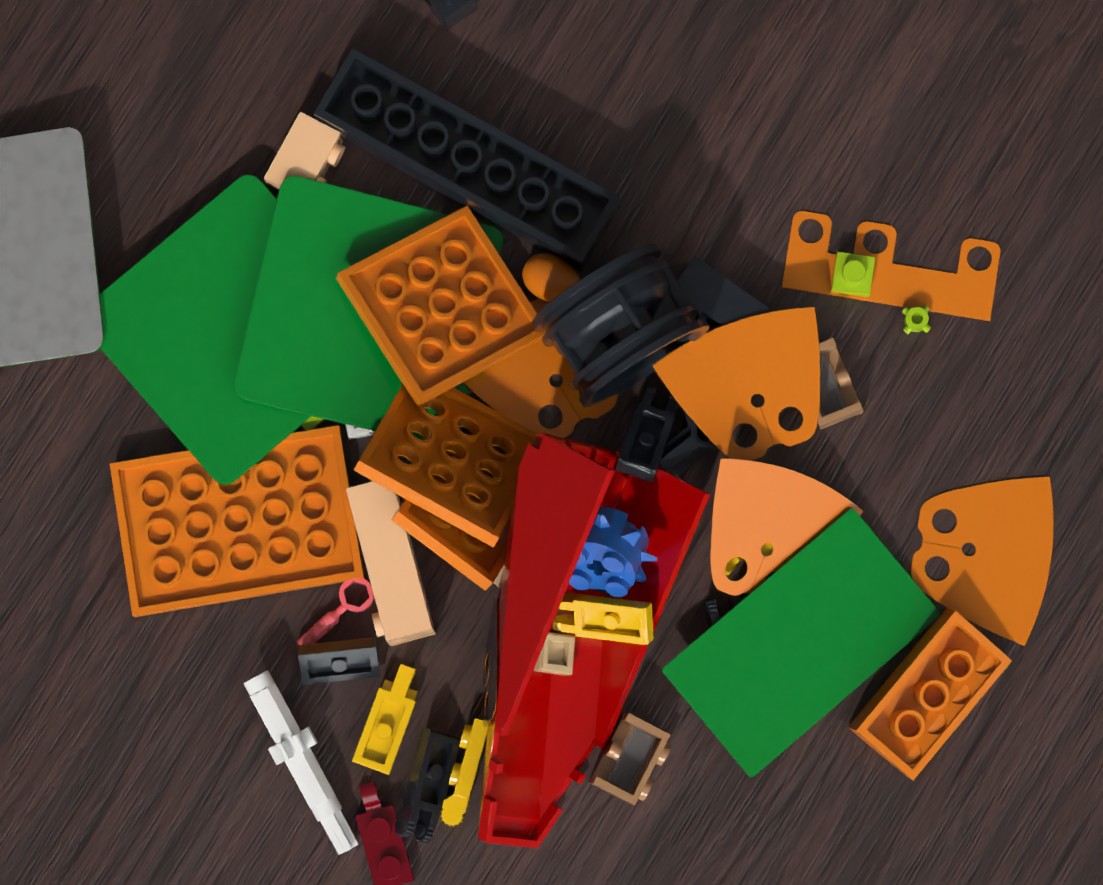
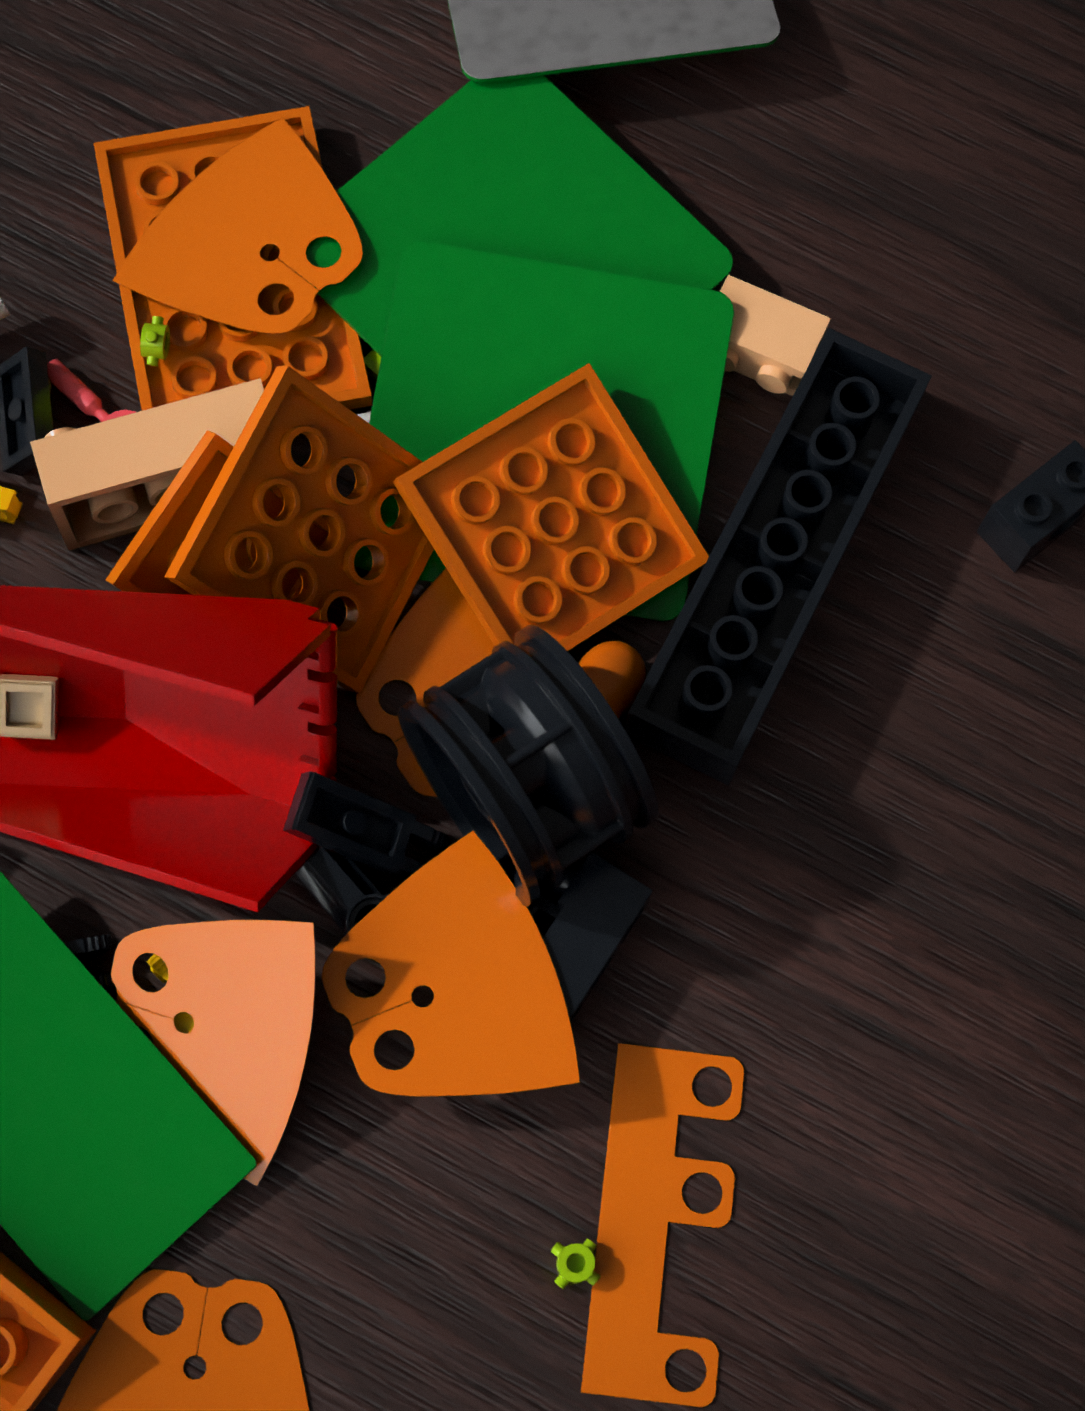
camera: 80 degrees right, 10 degrees down
(213, 533) = (210, 236): none -> orange piece
(296, 568) = (155, 341): none -> lime piece
(606, 619) = (71, 768): yellow hinge -> none
(612, 555) = (167, 756): blue brick -> none
(837, 394) = (454, 1129): medium nougat window -> none
(853, 274) = (644, 1154): lime plate -> none

